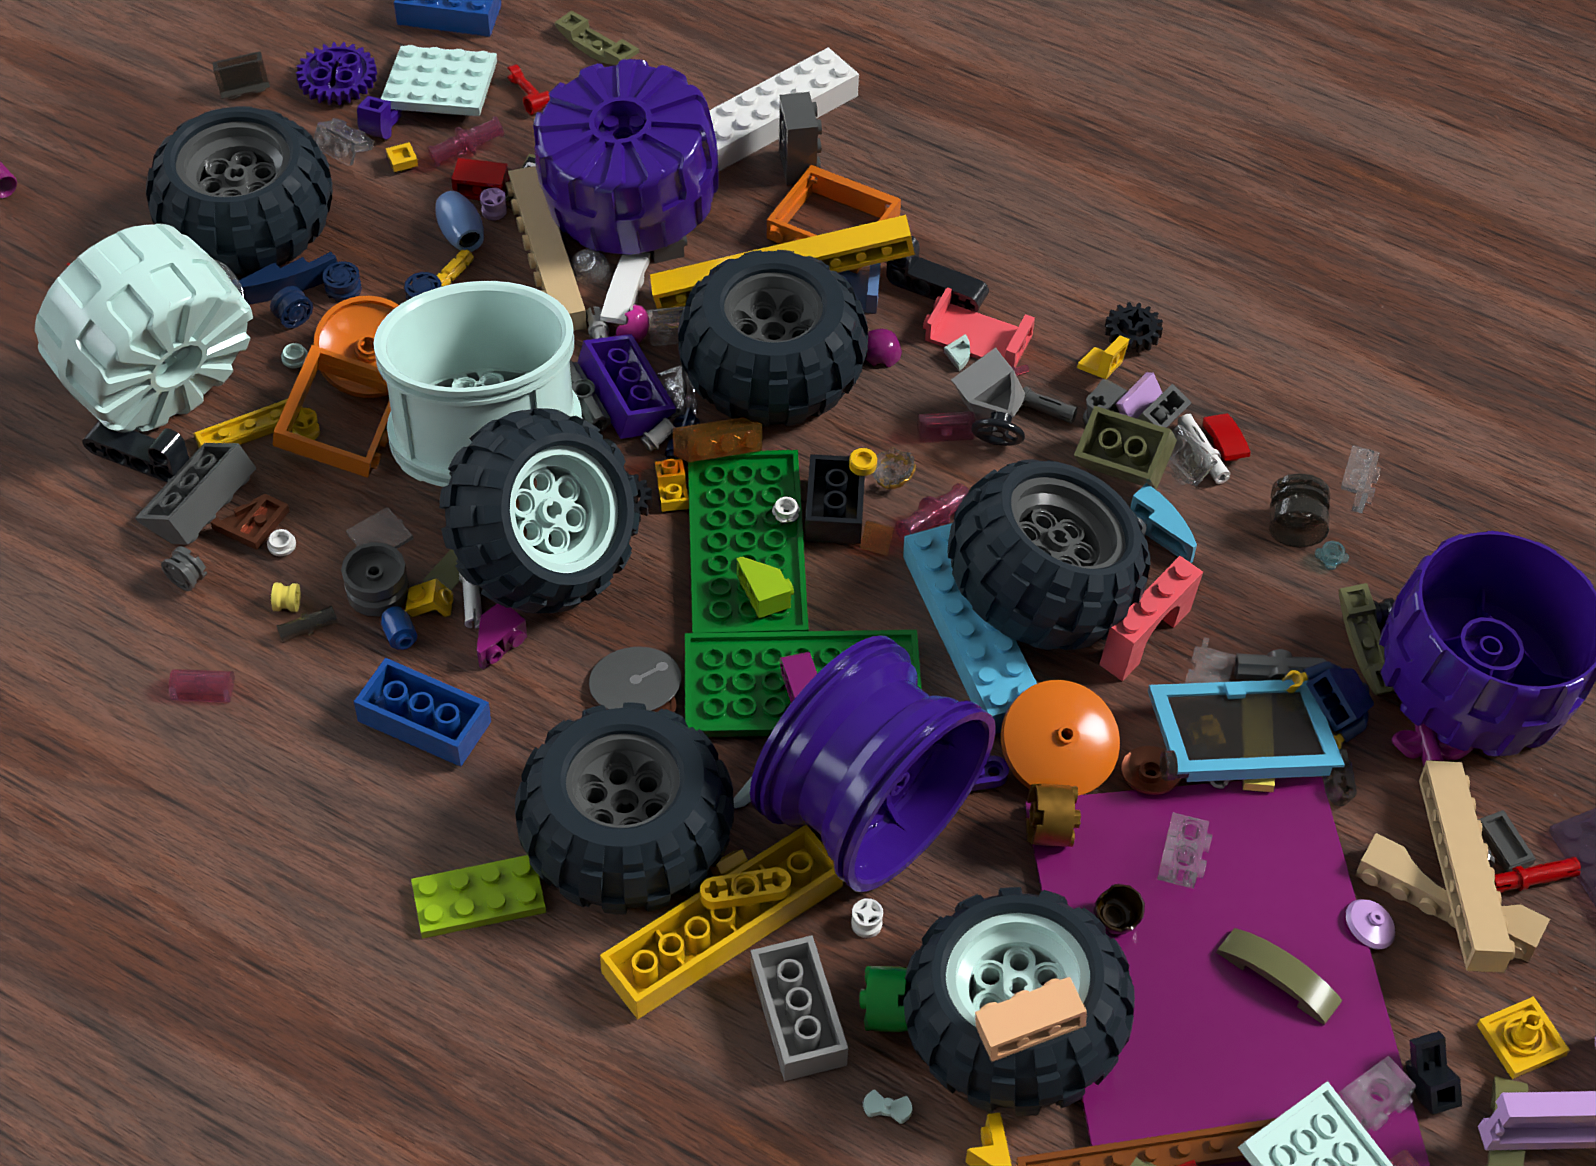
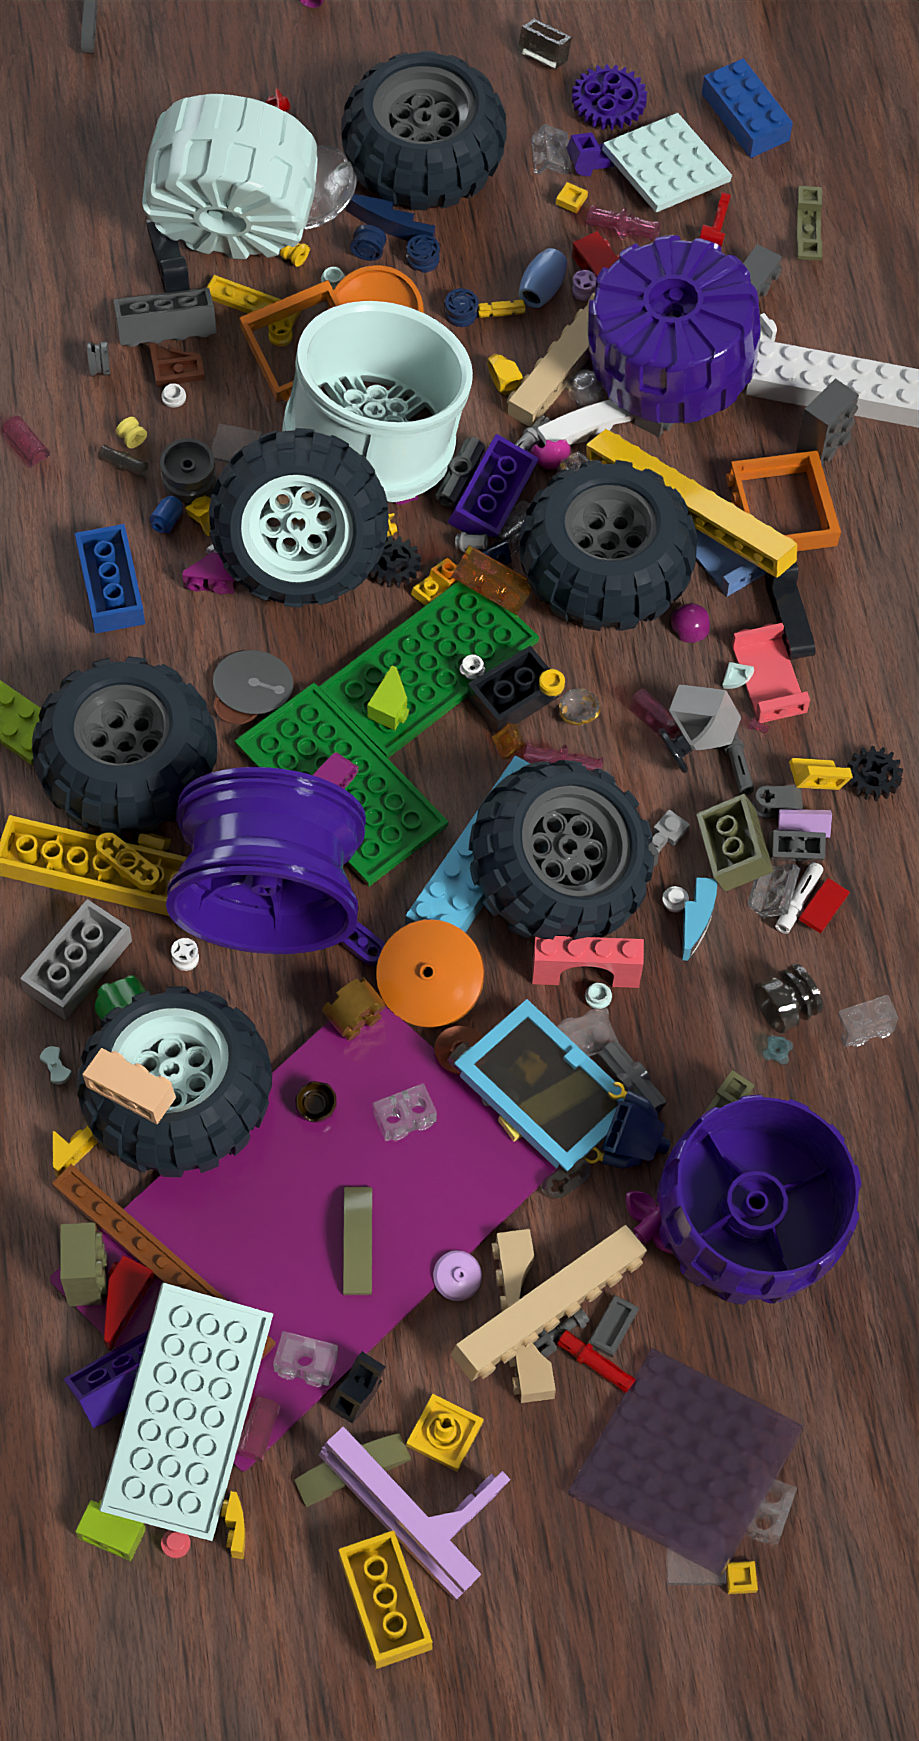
camera: 50 degrees right, 10 degrees up
(241, 363) = (296, 254): none -> yellow wheel
(1178, 640) = (598, 996): none -> light aqua plate

